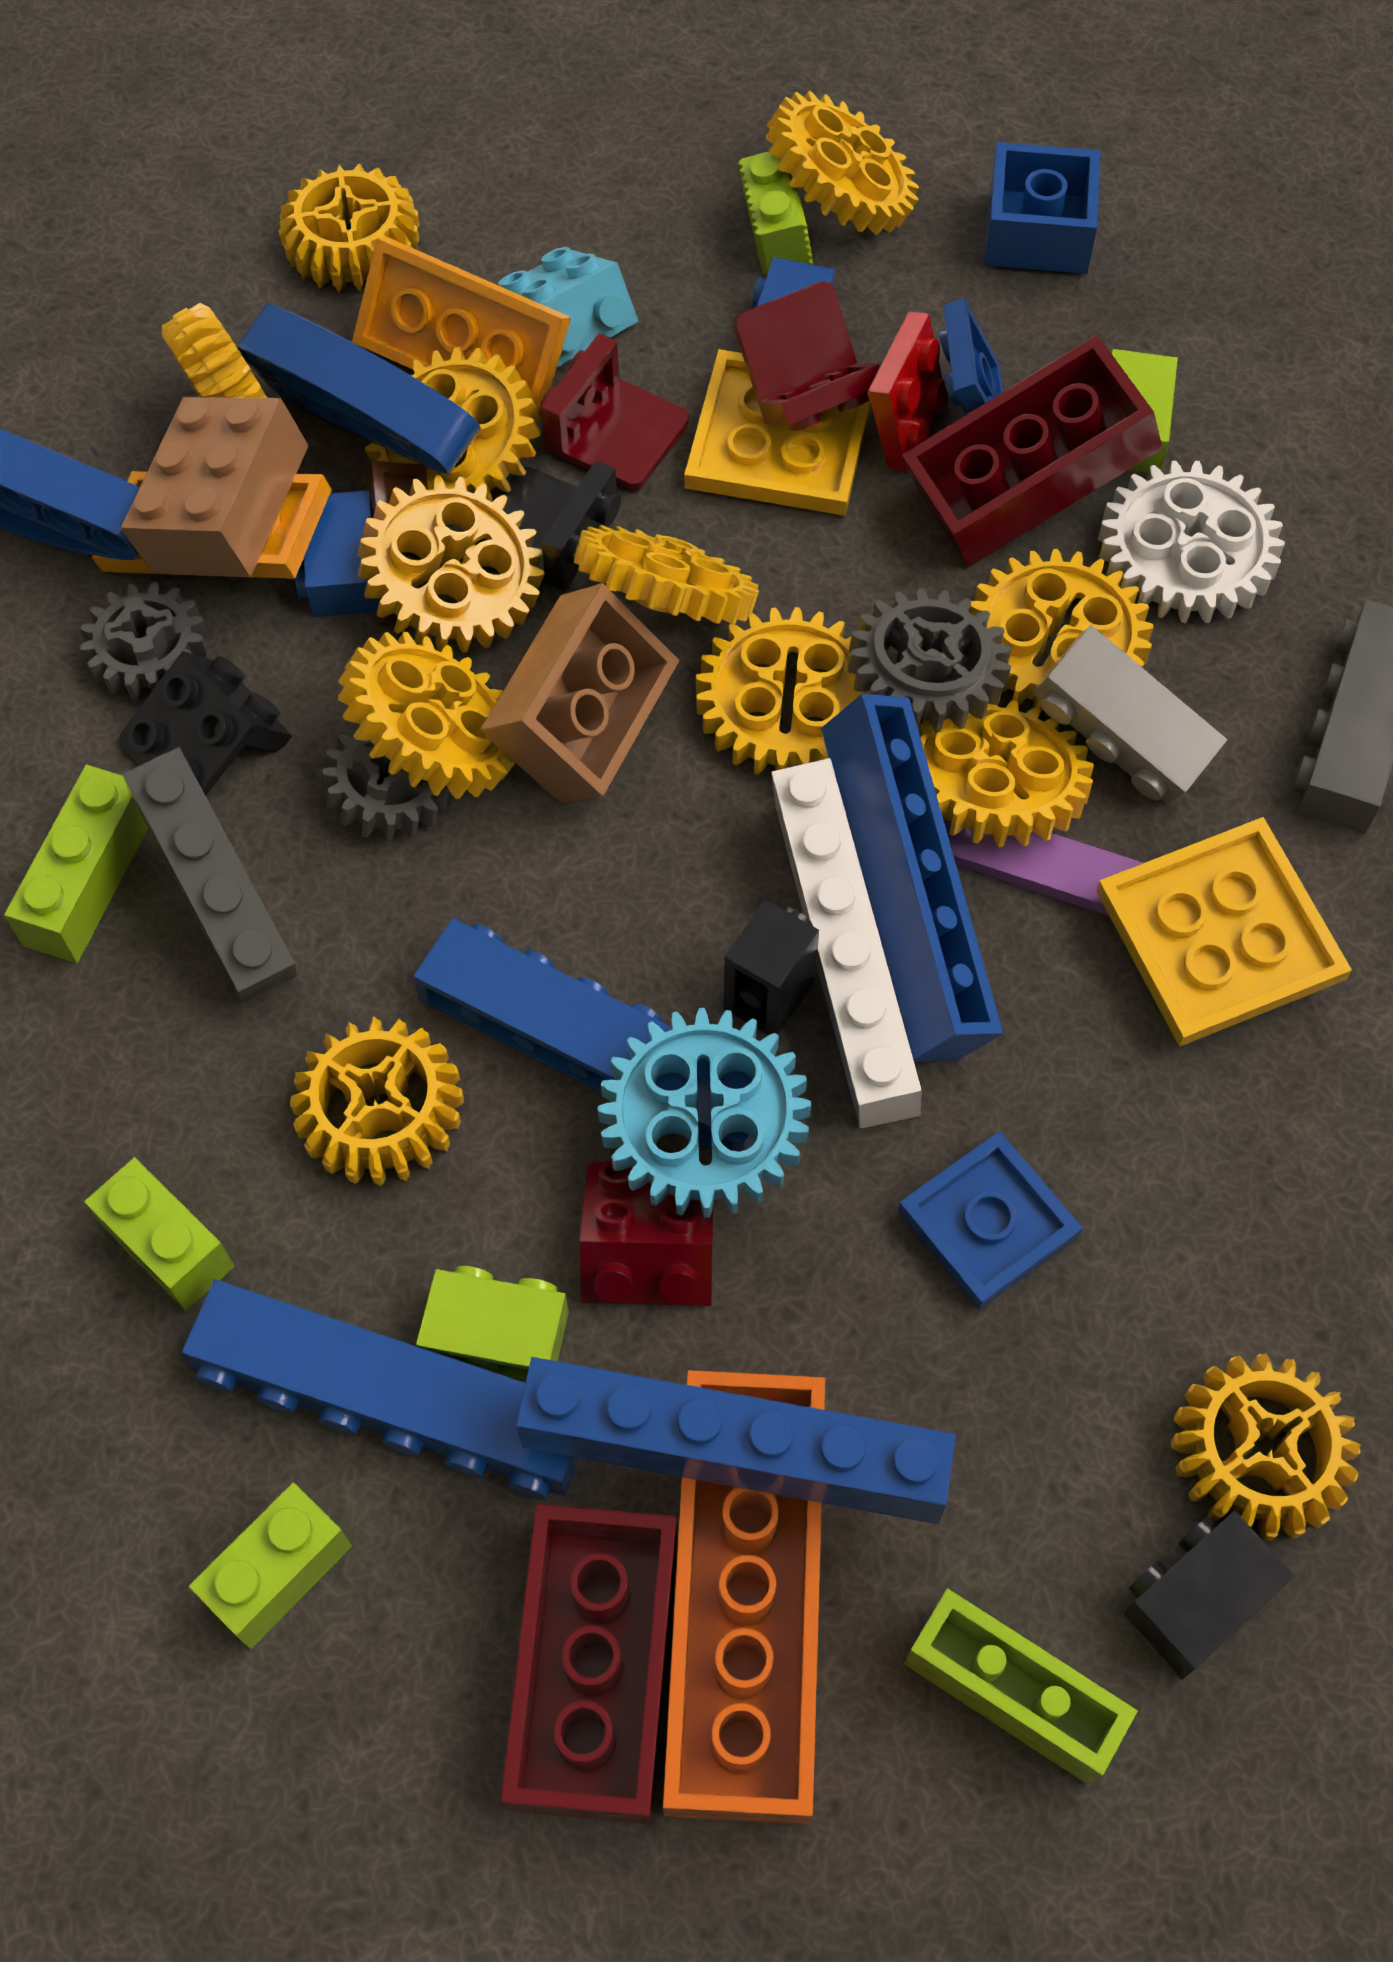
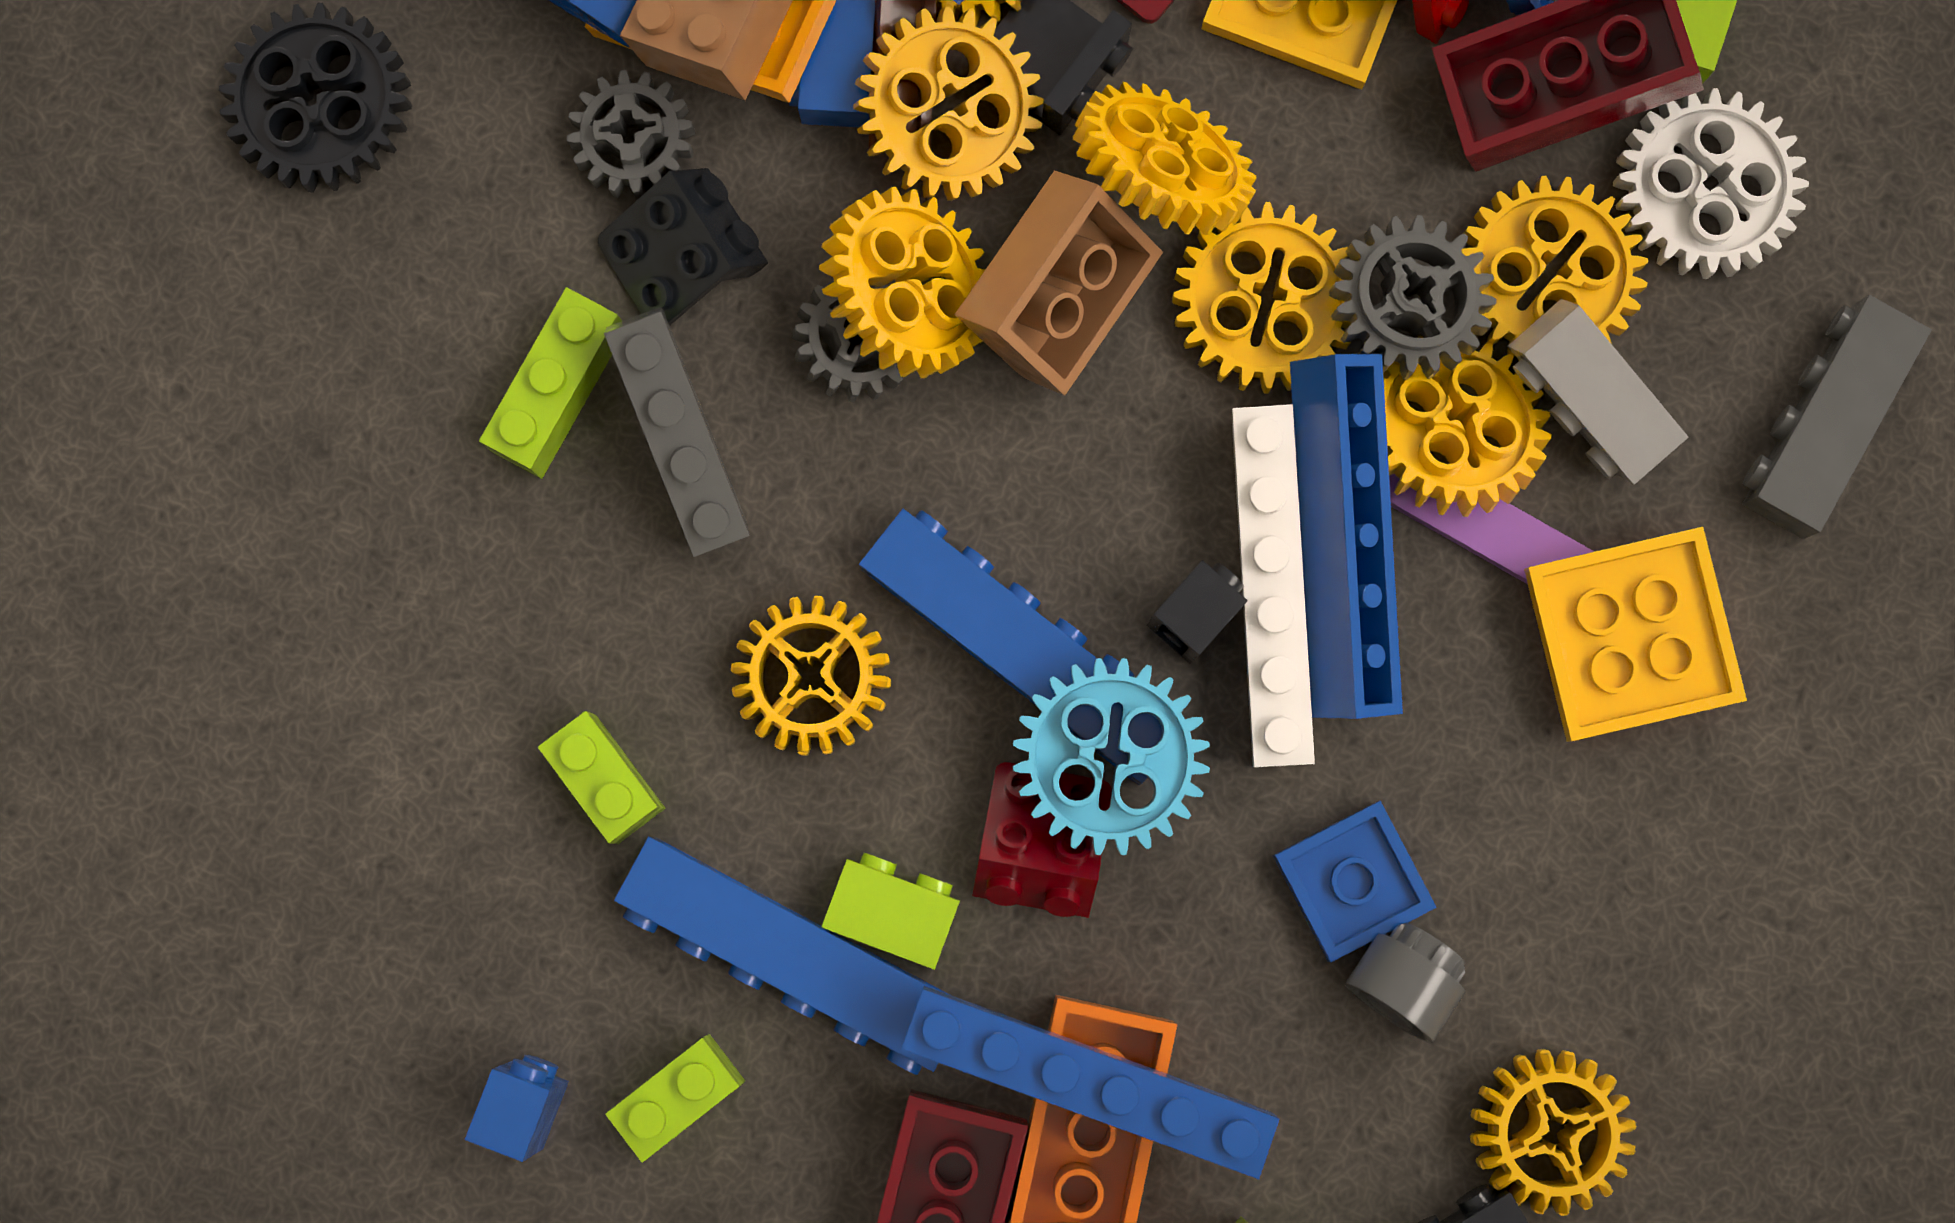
camera: 10 degrees right, 20 degrees up
(86, 1597) = (518, 1107): none -> blue brick
(1070, 1306) = (1410, 980): none -> dark grey piece

